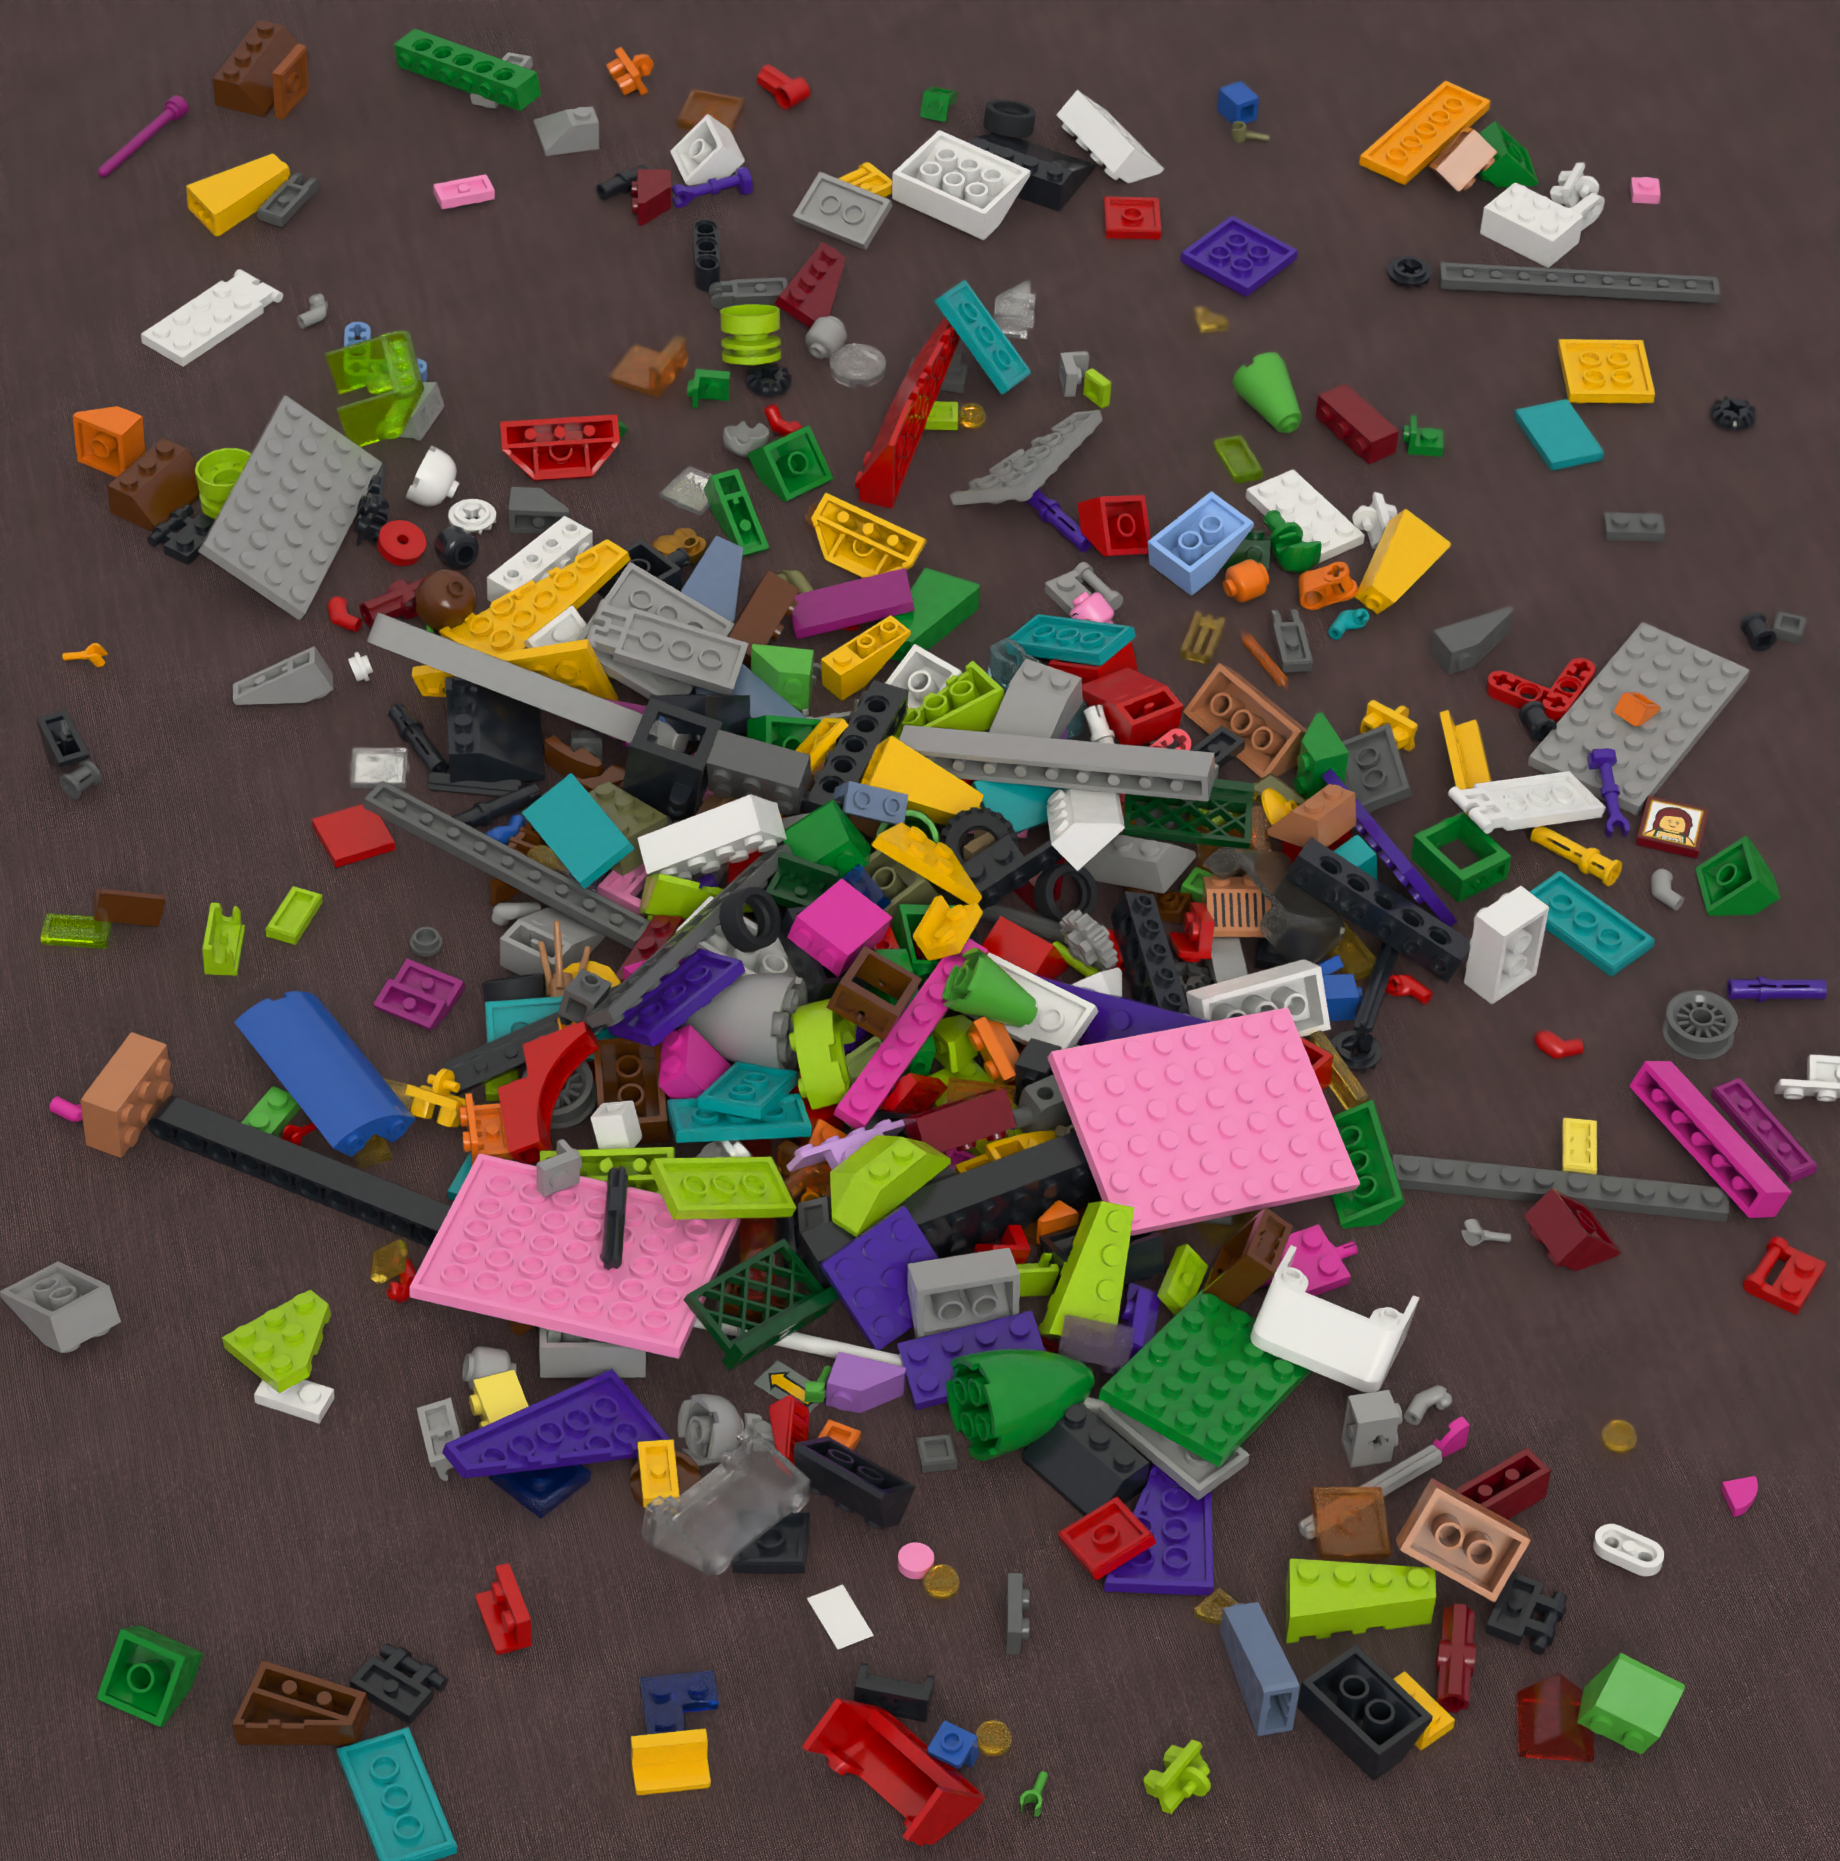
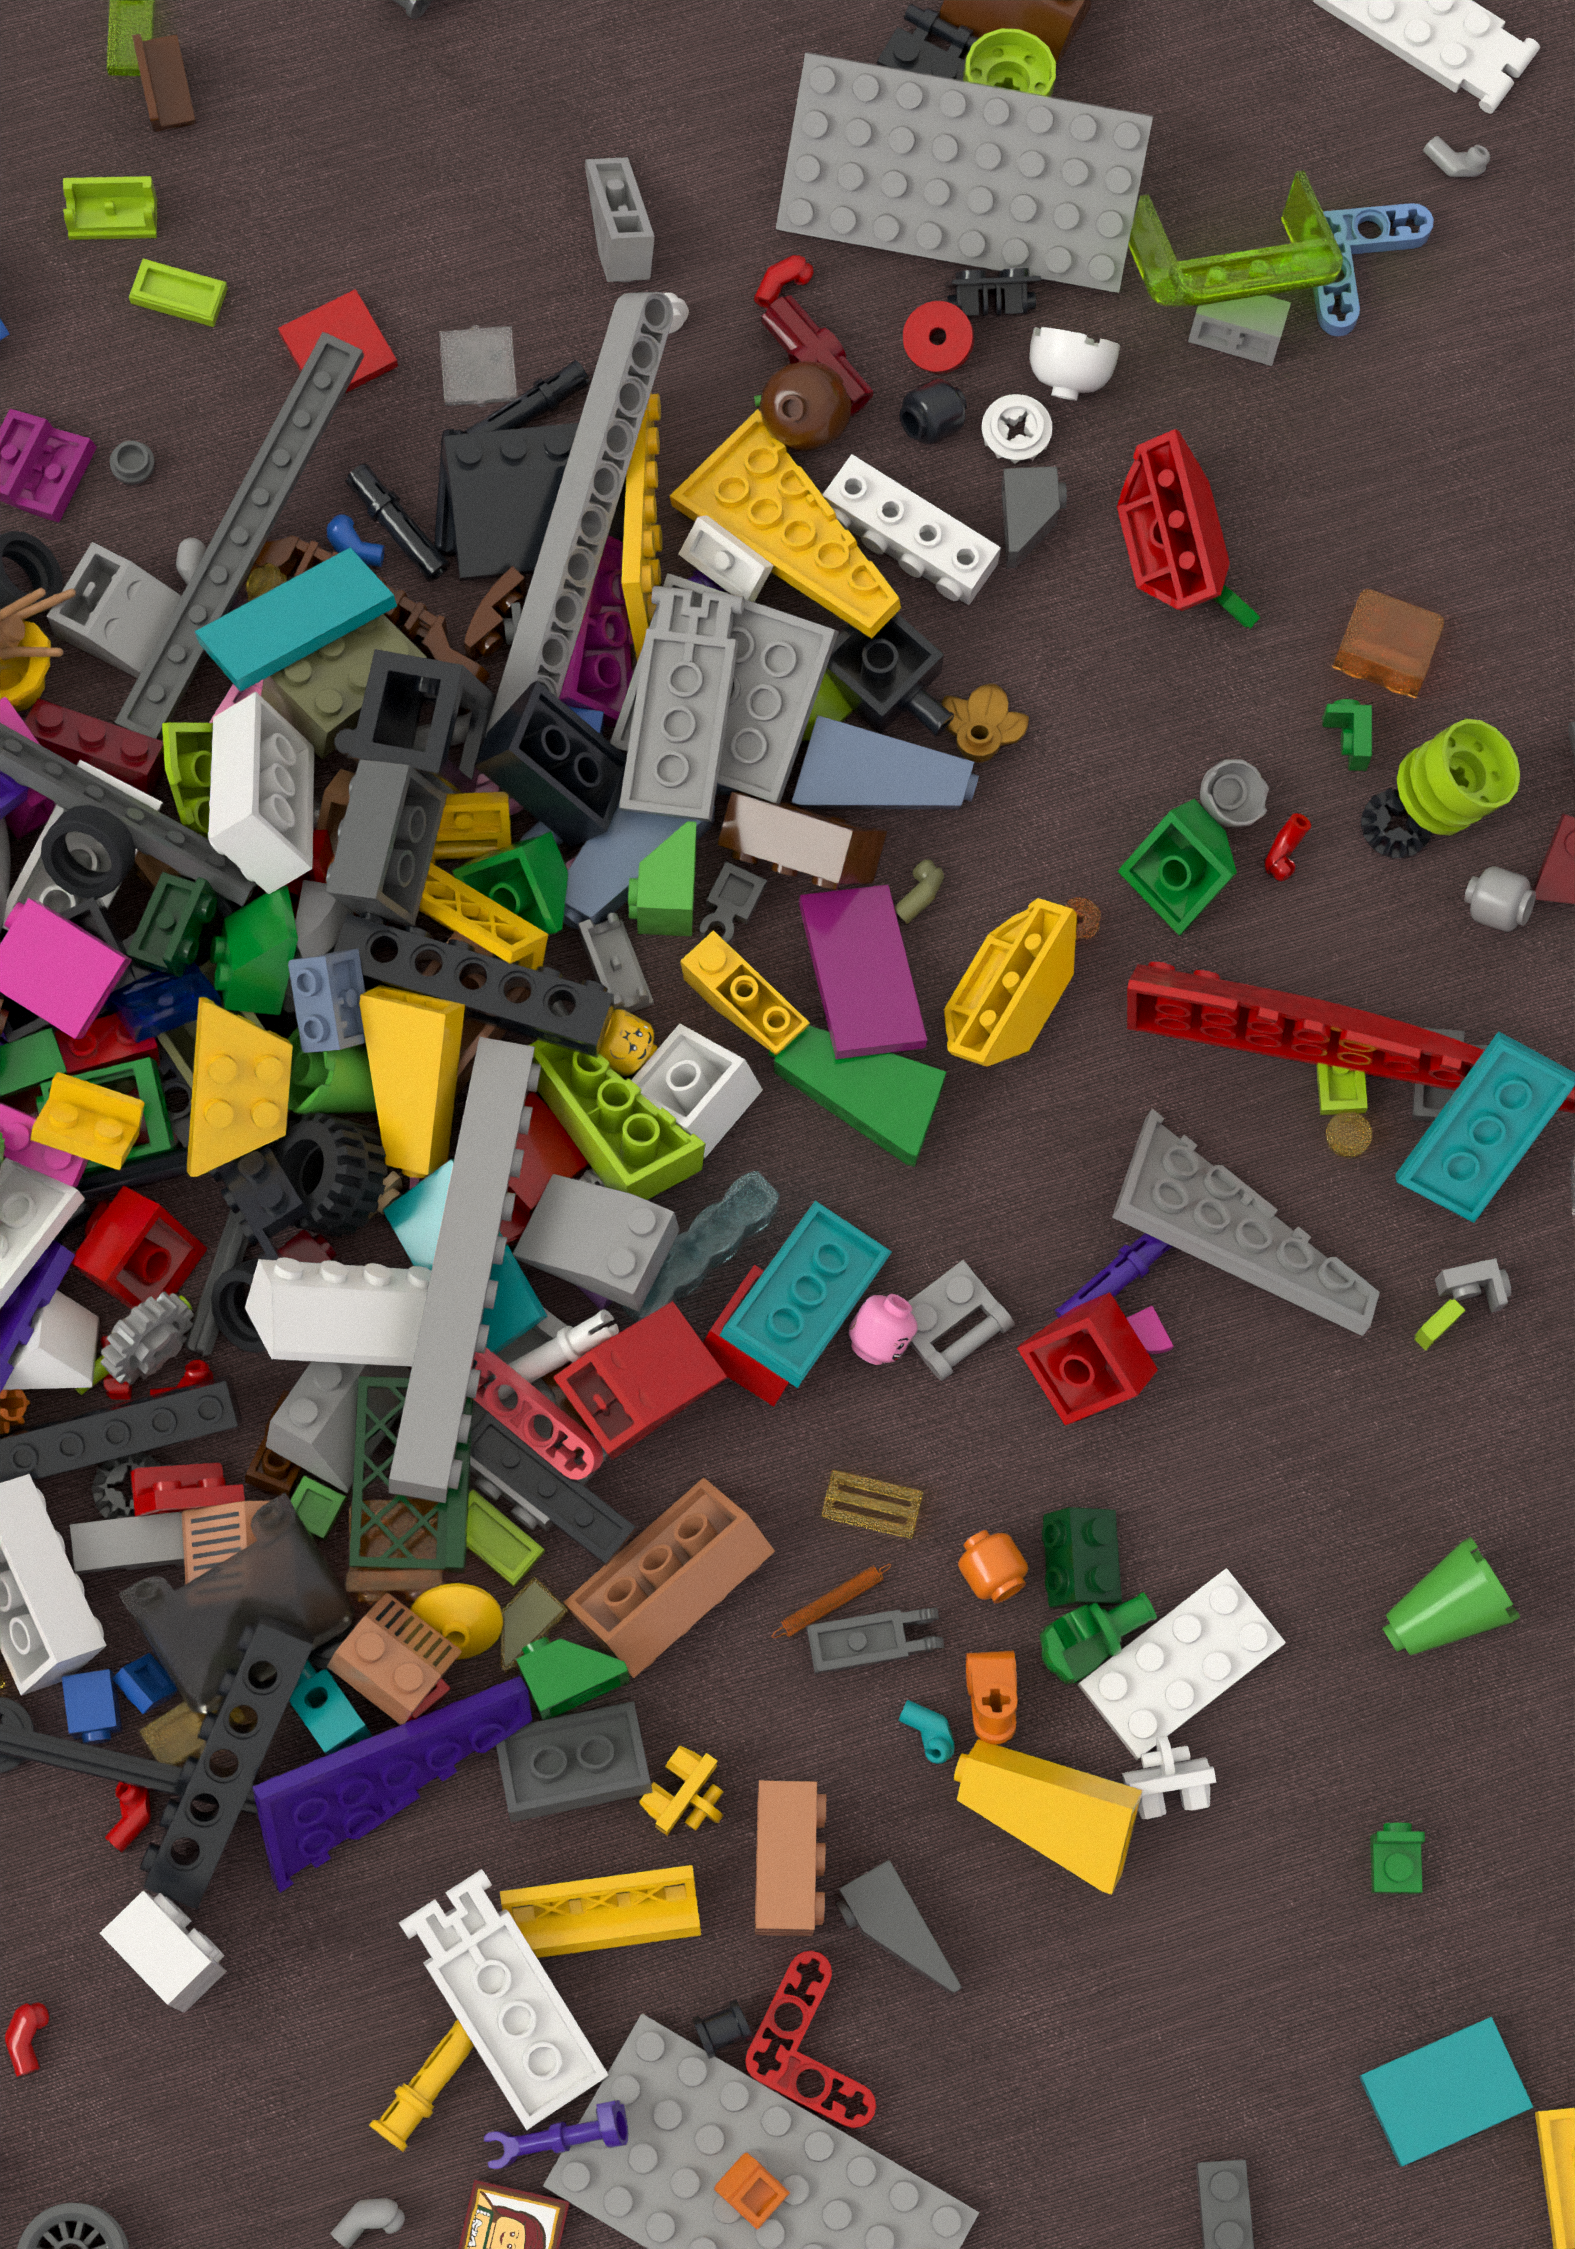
camera: 85 degrees right, 30 degrees up
(687, 491) = (1124, 735): clear piece -> none
(735, 511) = (1057, 795): green slope -> none
(857, 365) = (1453, 954): clear tile -> none
(1198, 543) = (1049, 1485): light blue slope -> none
(1238, 459) = (1310, 1556): clear neon green tile -> none
(1357, 423) = (1409, 1744): dark red brick -> none
(1434, 674) = (789, 1858): none -> nougat brick
(1471, 880) = (358, 1921): green window -> none
(1591, 925) = (289, 2091): teal tile -> none

